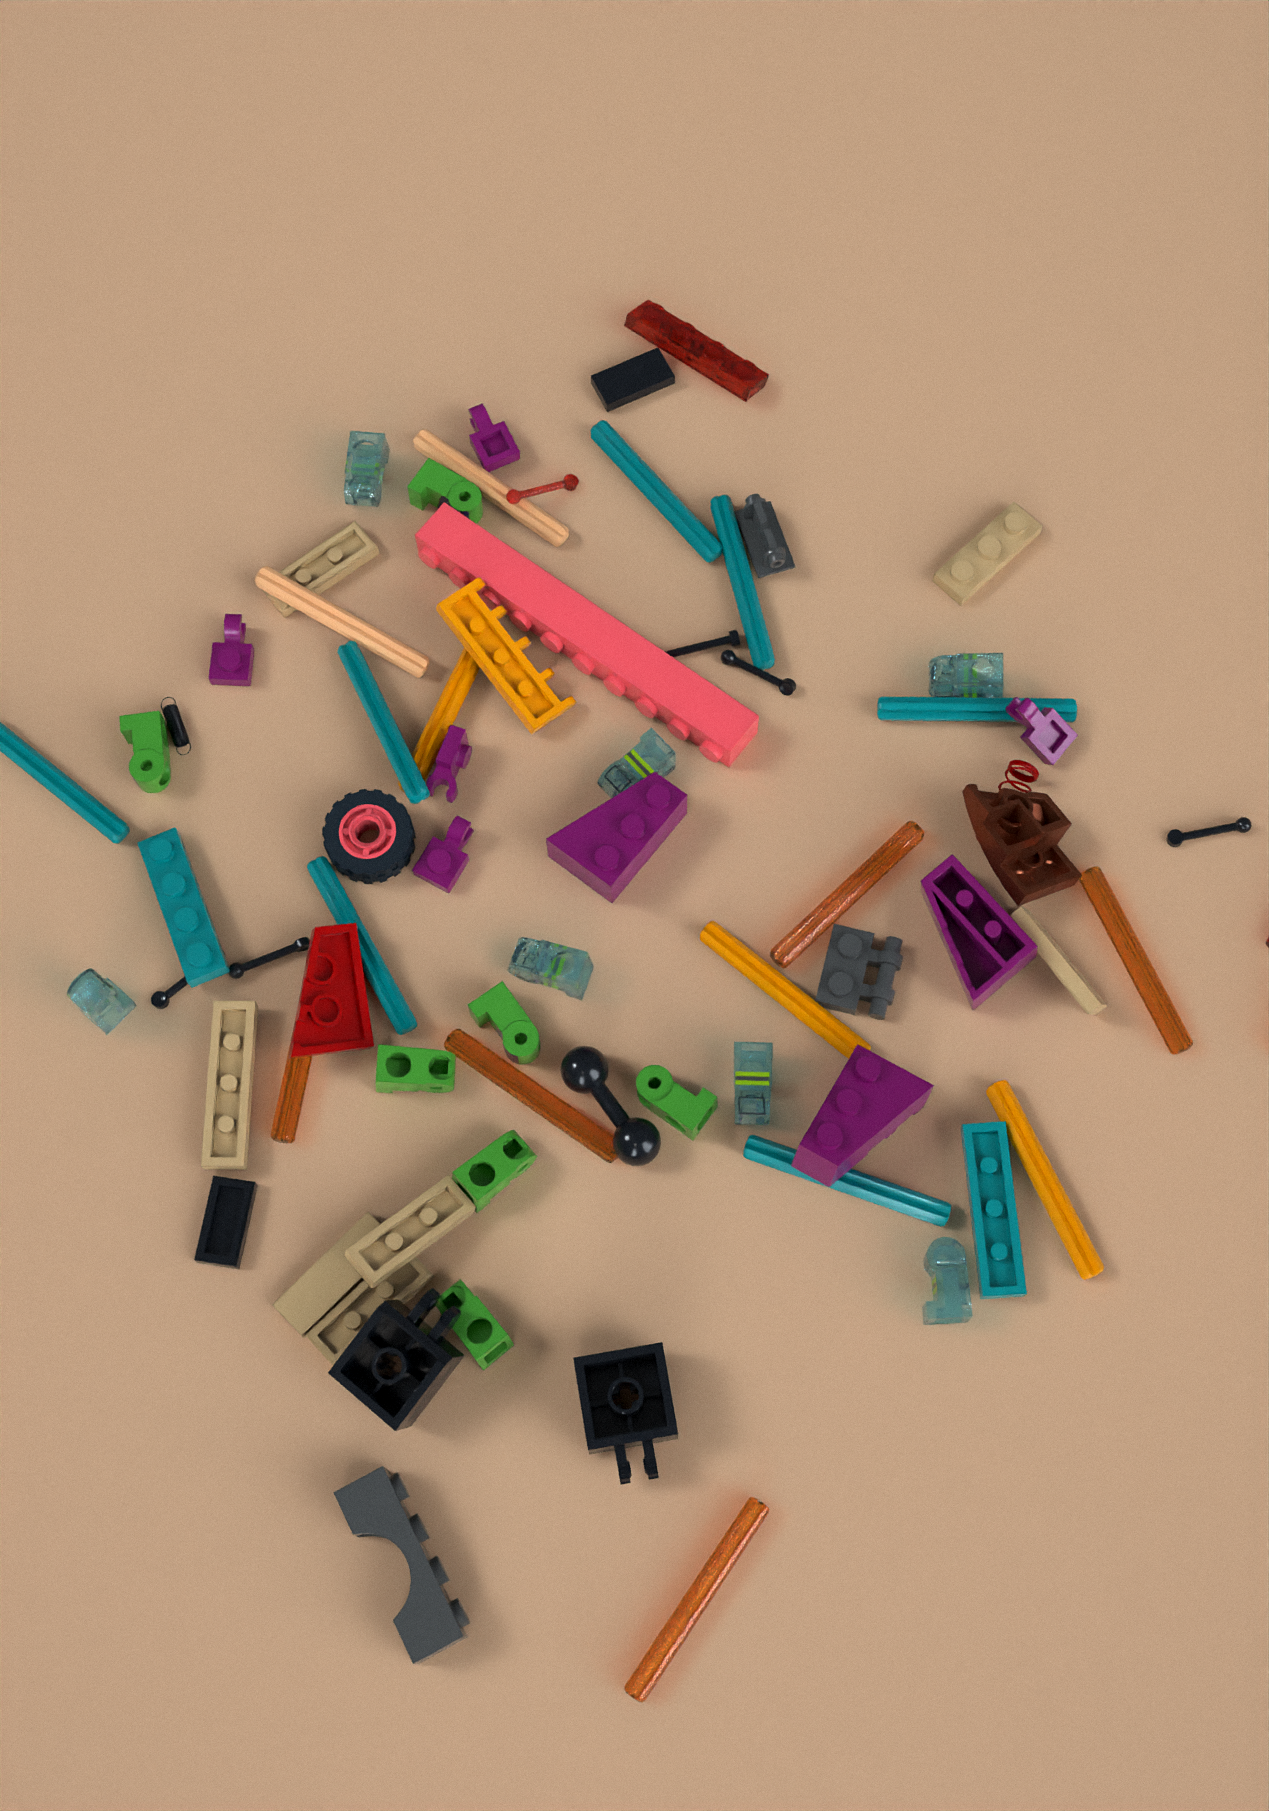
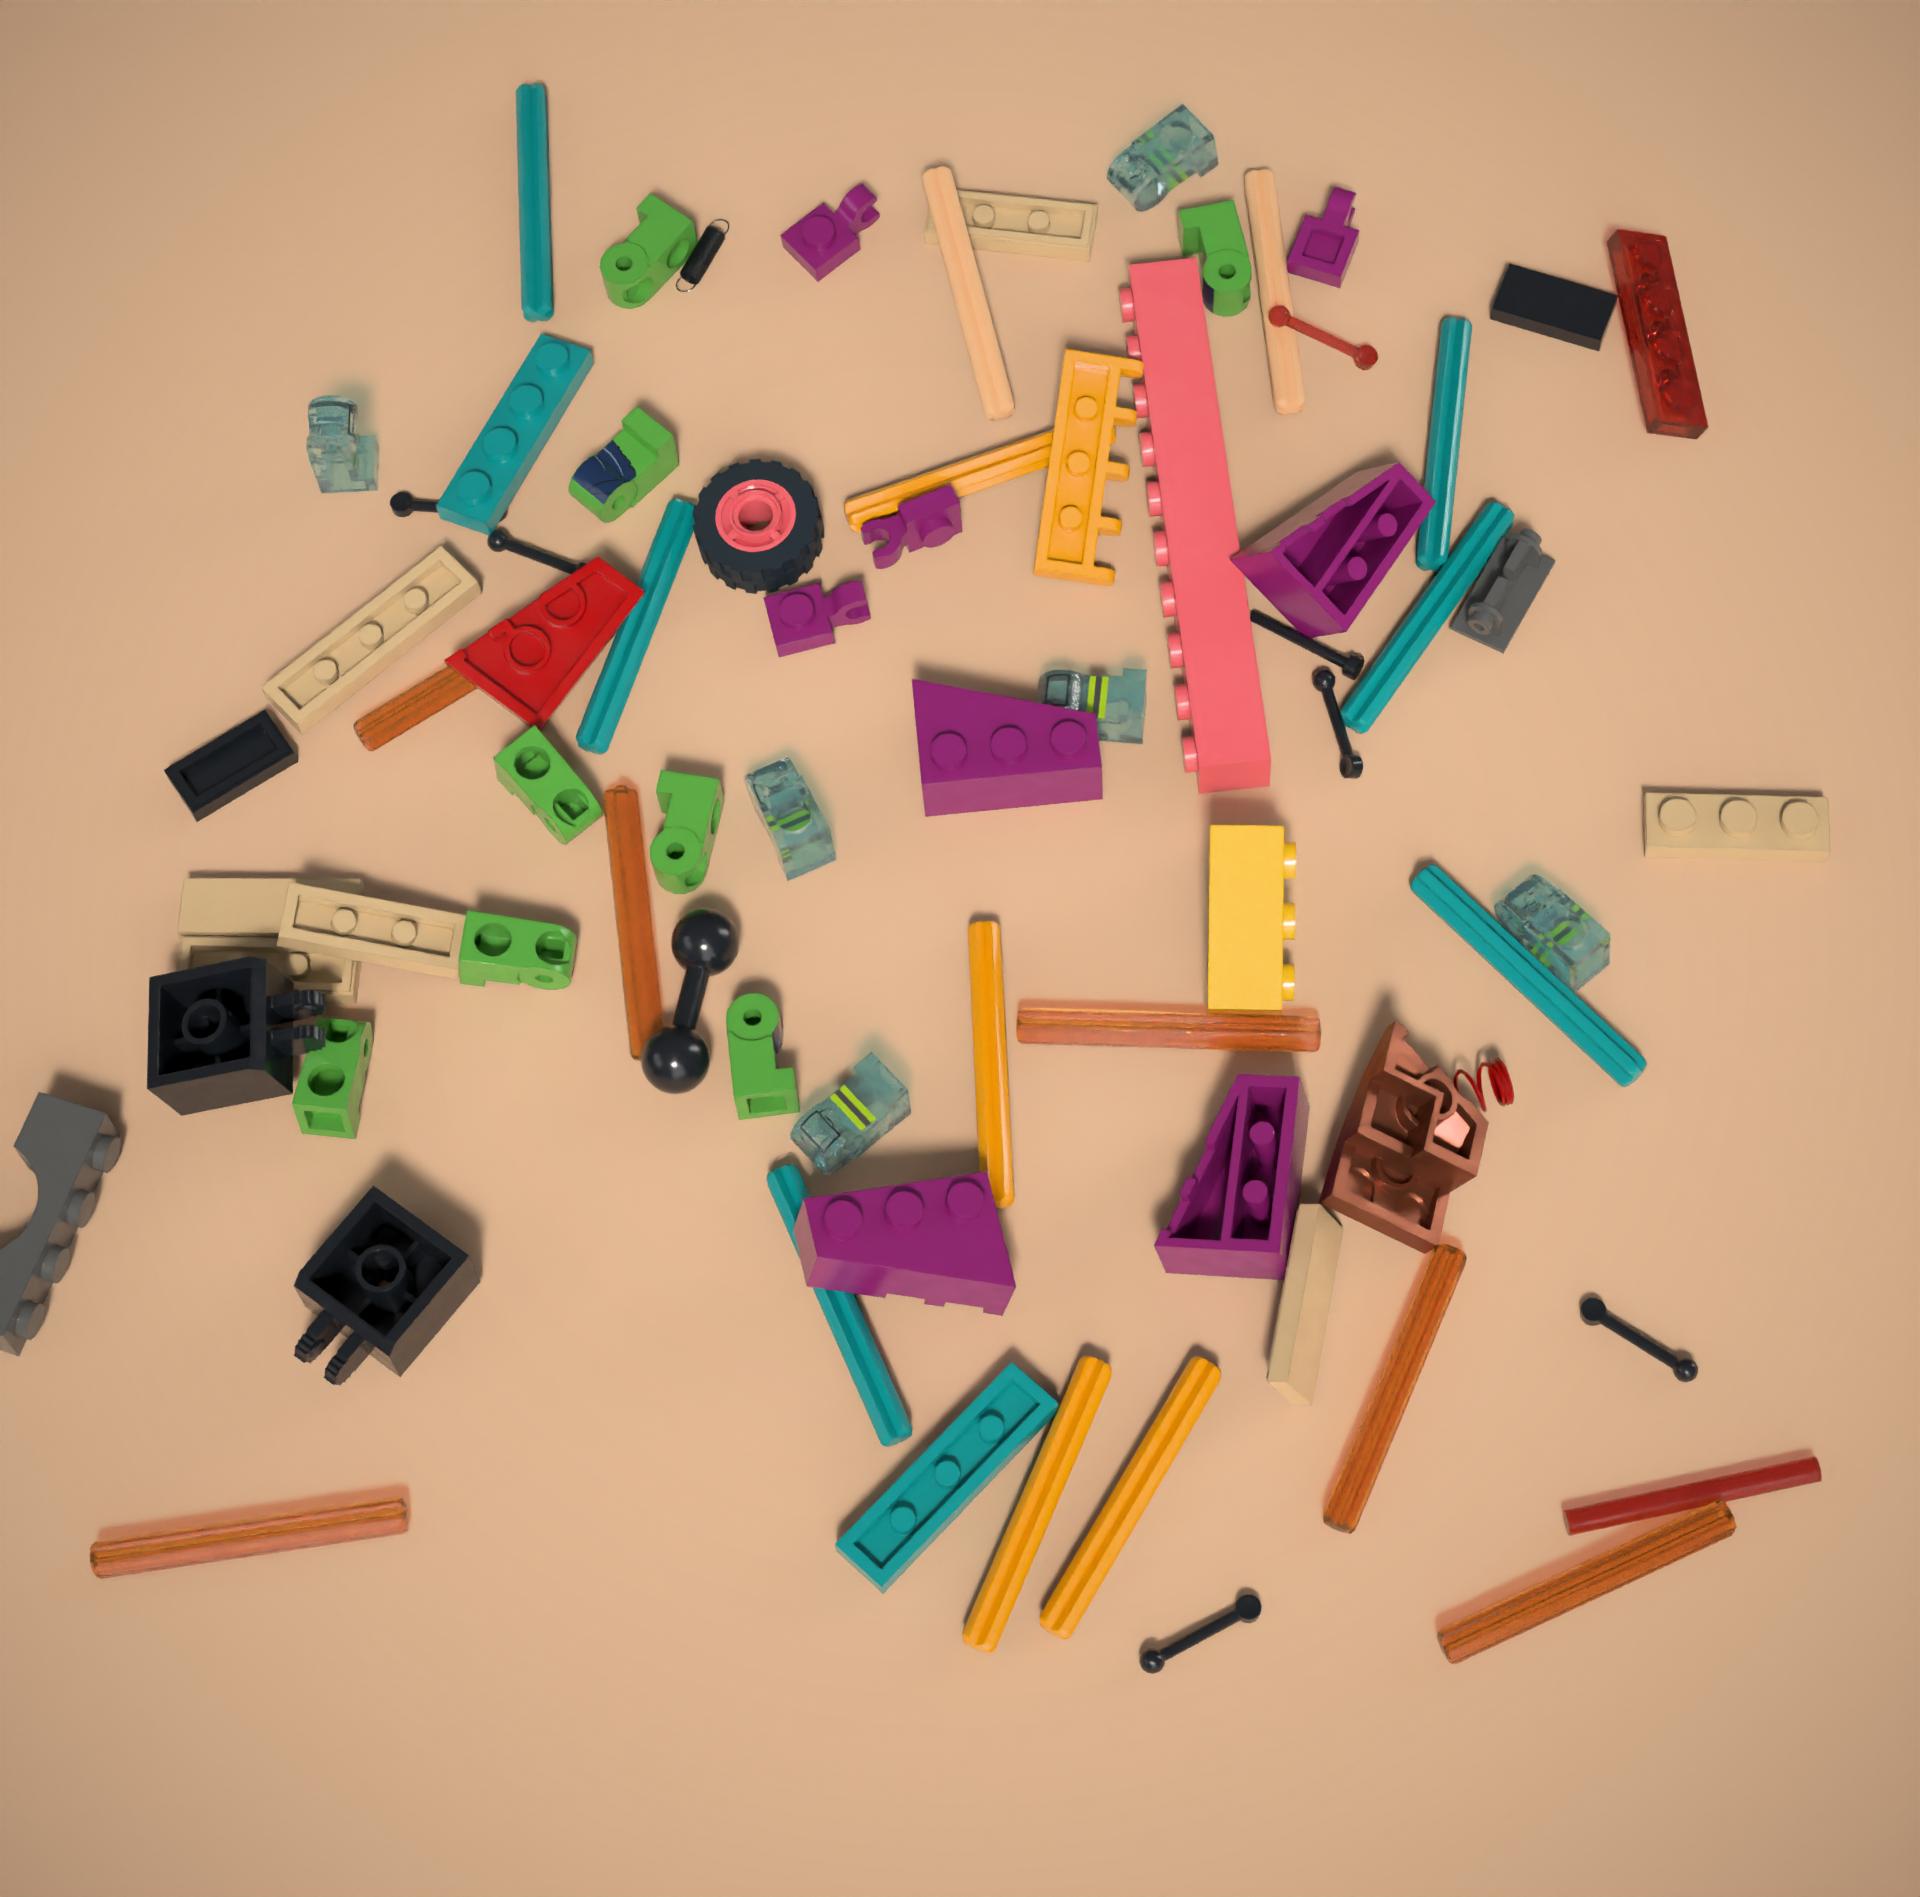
camera: 50 degrees right, 5 degrees down
(264, 870) = (625, 467): none -> bright green leg
(383, 722) = (894, 426): teal axle -> none
(673, 584) = (1337, 549): none -> magenta wedge
(833, 804) = (1249, 919): none -> yellow wedge
(845, 969) = (1081, 1101): dark grey plate -> none
(950, 1284) = (818, 1500): clear light blue leg -> none
(1046, 730) = (1568, 1065): magenta plate -> none
(1081, 1133) = (1130, 1498): none -> light orange axle
(1185, 1131) = (1246, 1610): none -> black hinge

